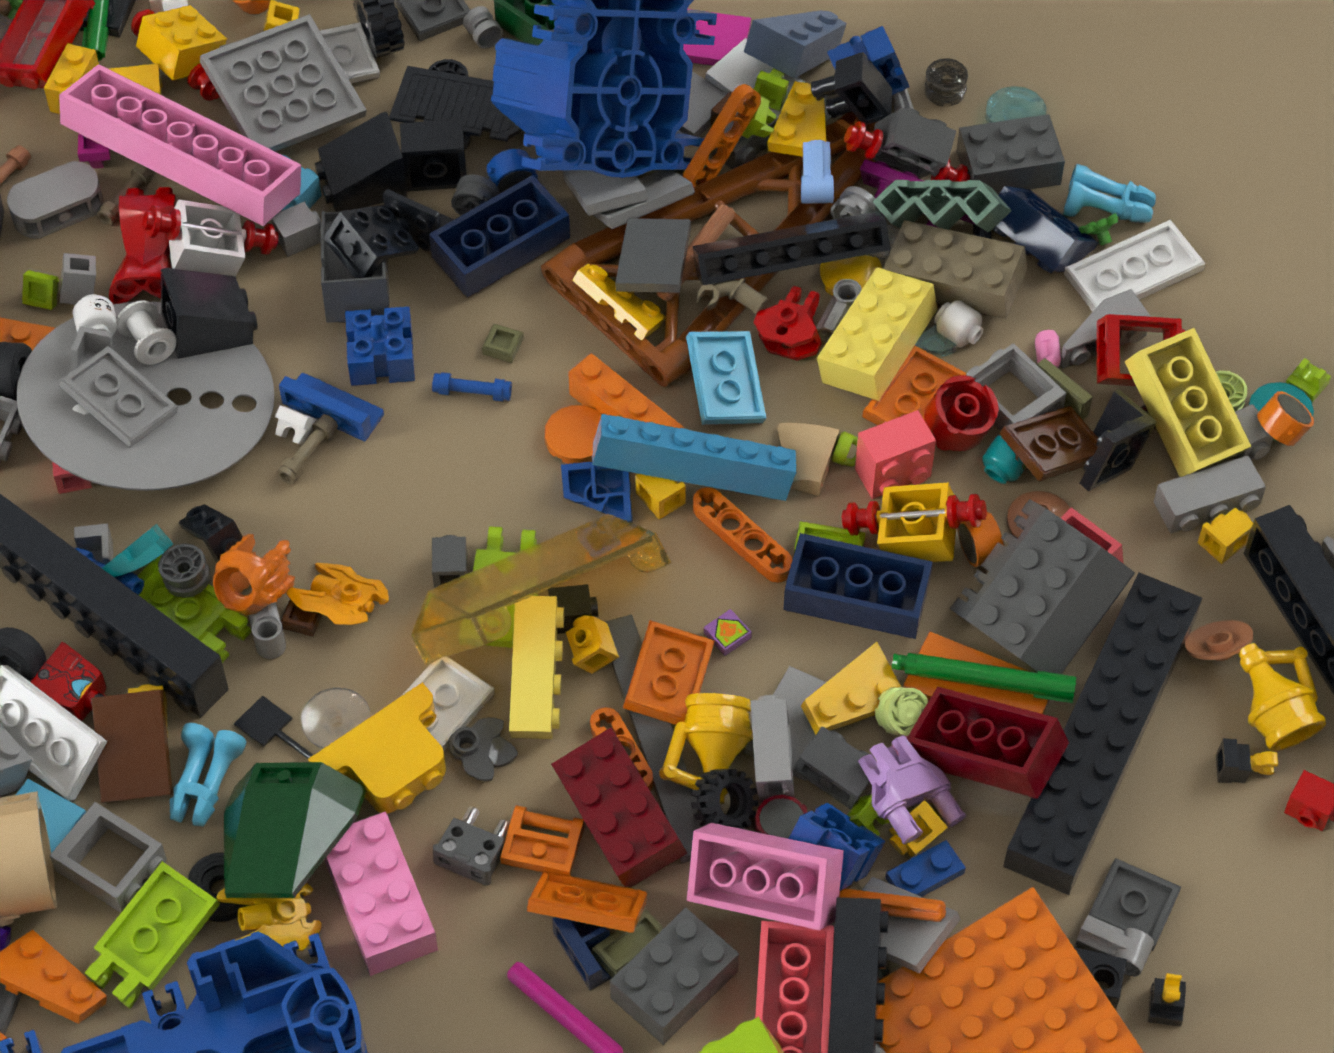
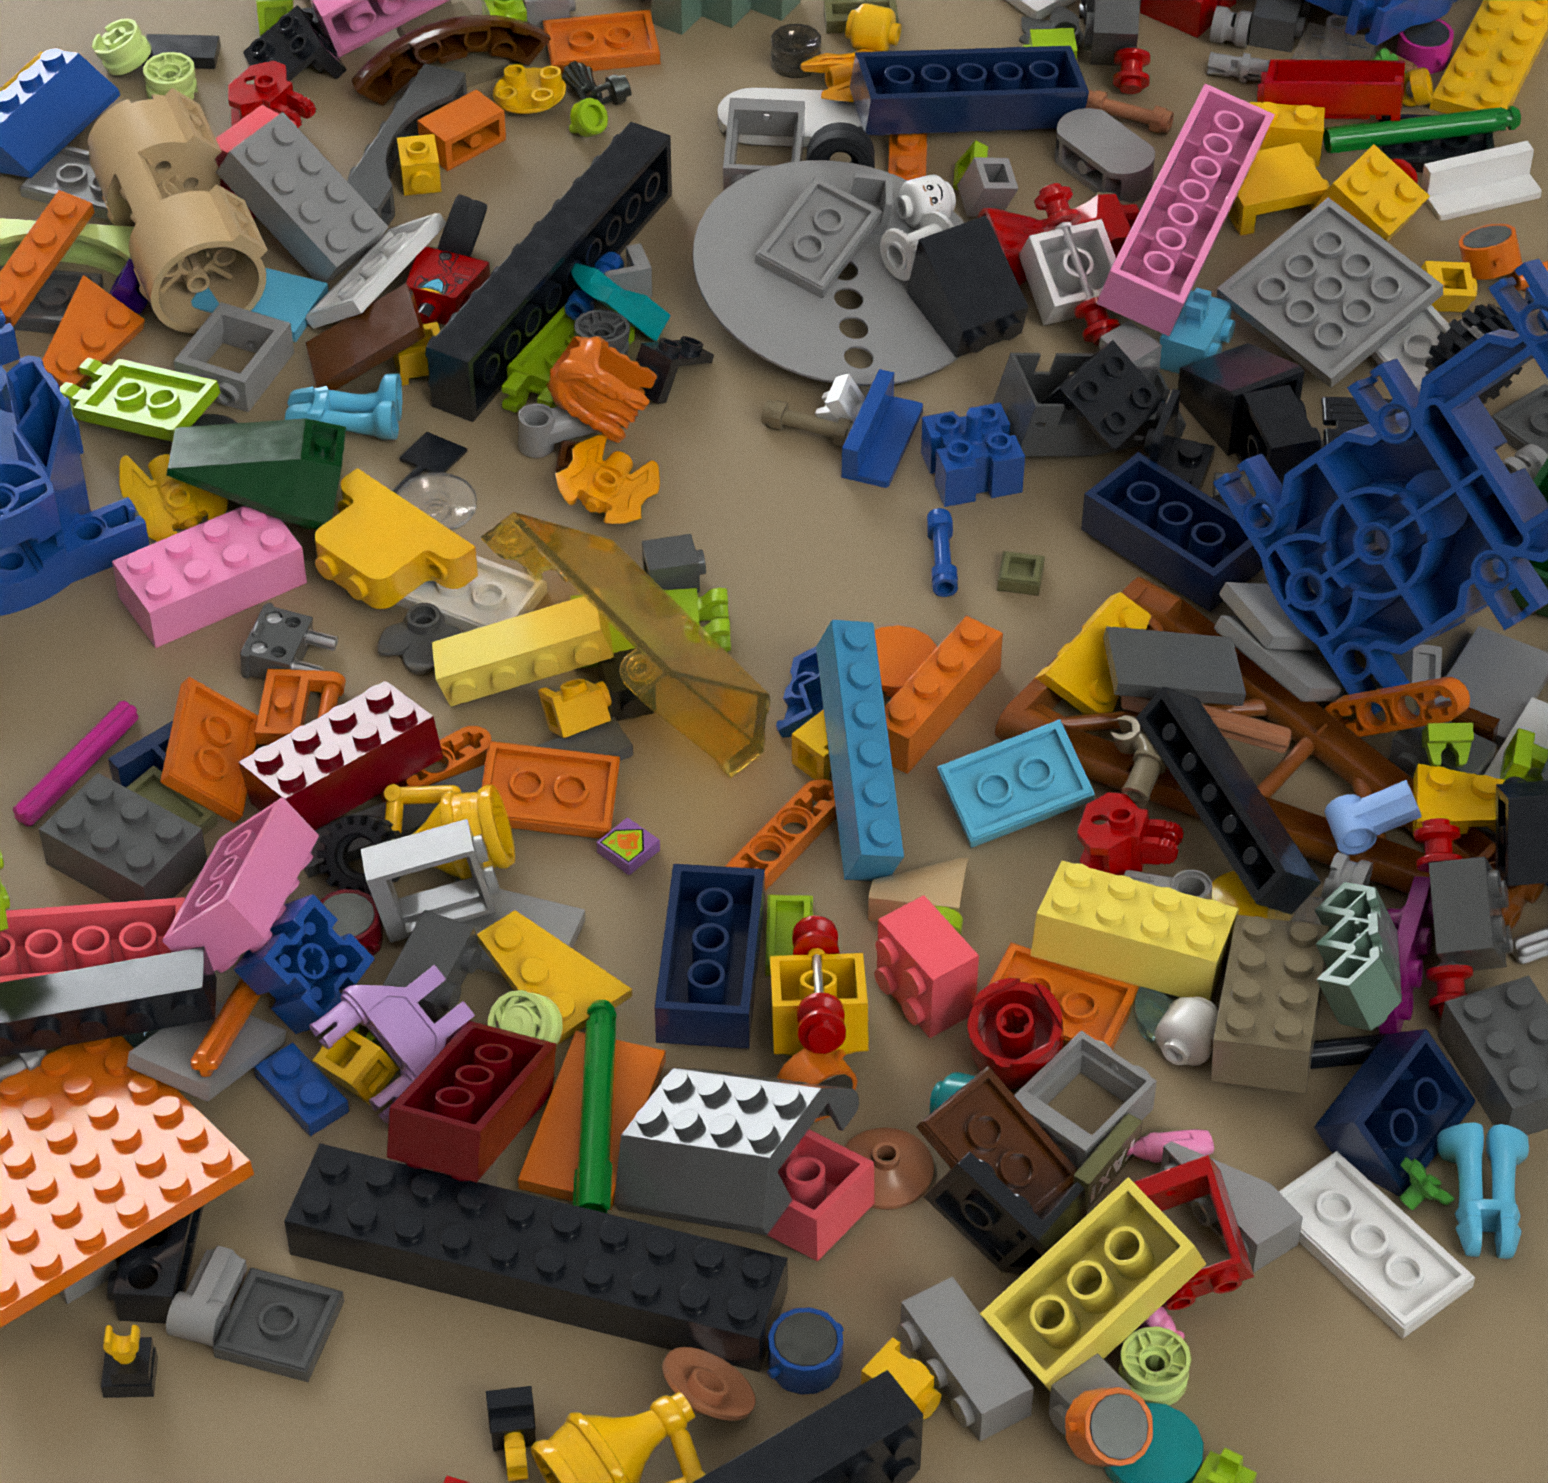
camera: 80 degrees right, 10 degrees down
(1198, 577) = (805, 1350): none -> piece

